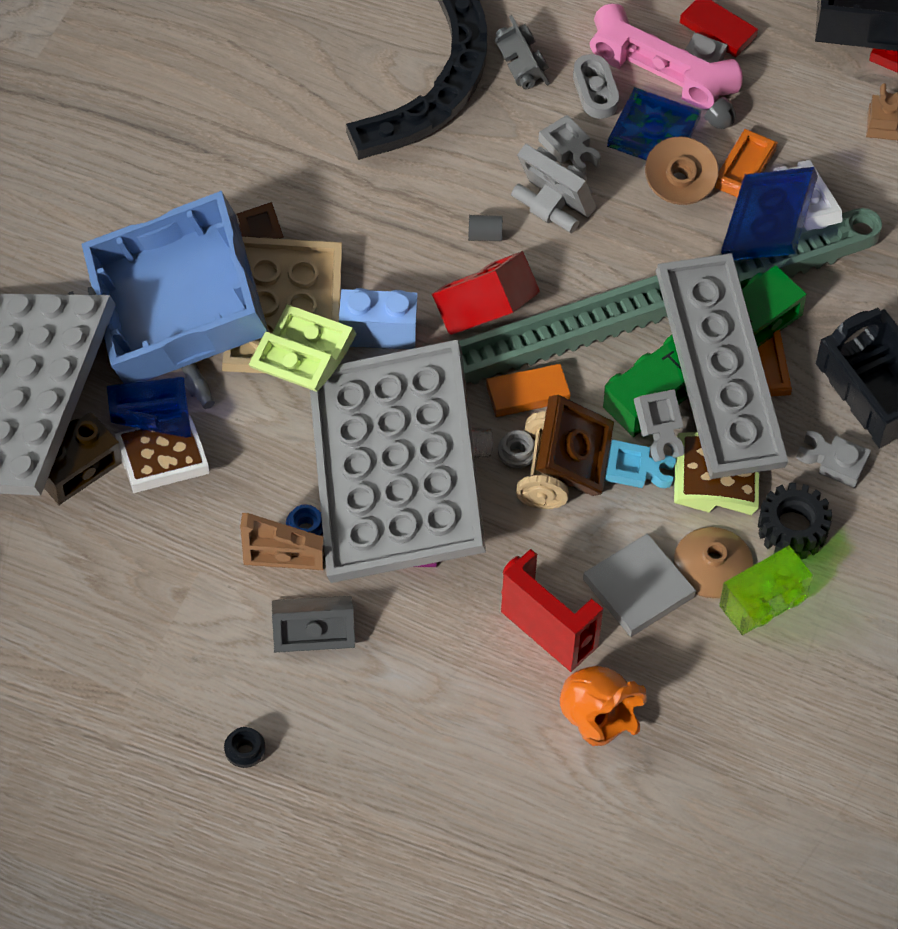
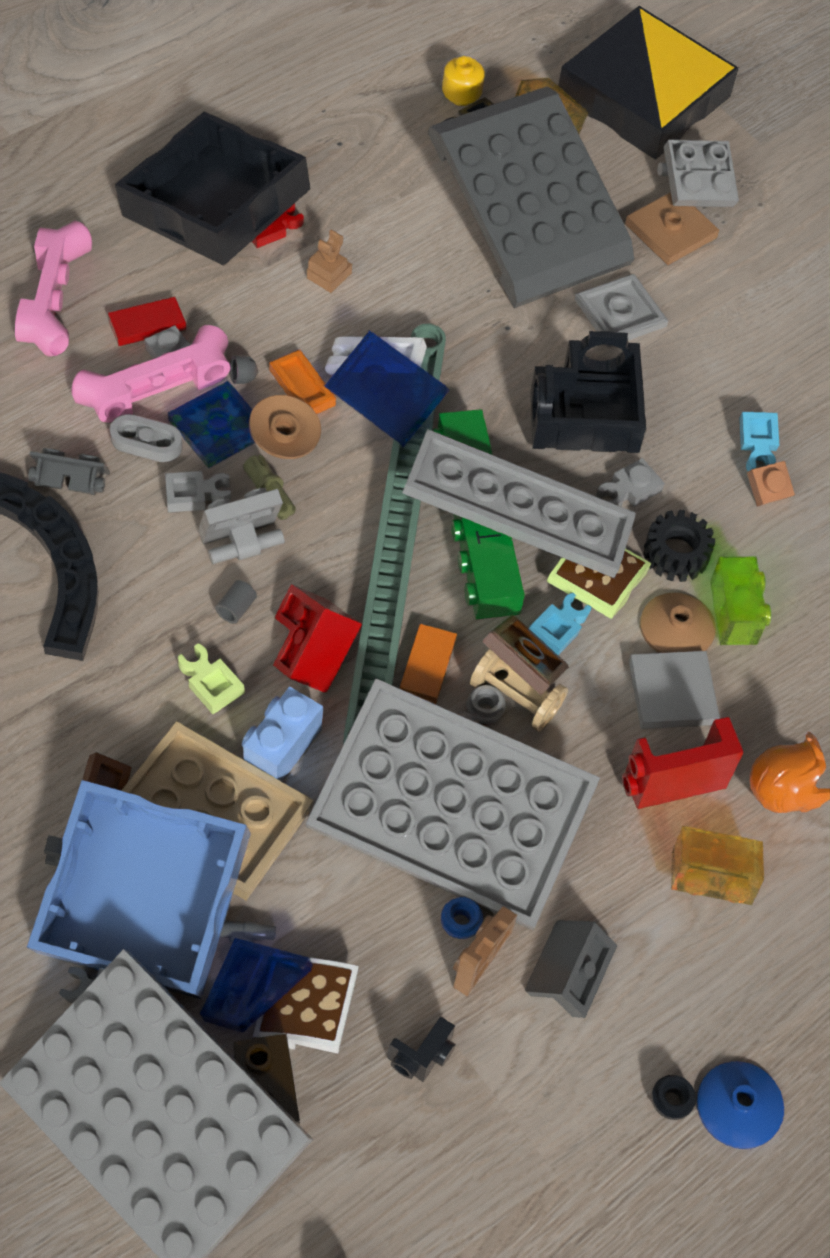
camera: 65 degrees left, 0 degrees up
(171, 552) = (434, 1049): none -> black bracket
(273, 821) = (729, 1120): none -> blue dish
(303, 348) = (285, 813): yellowish green slope -> none
(399, 250) = (213, 682): none -> yellowish green plate
(473, 684) = (717, 865): none -> clear yellow brick
(615, 193) = (264, 477): none -> olive axle
(659, 417) = (542, 579): light grey plate -> none

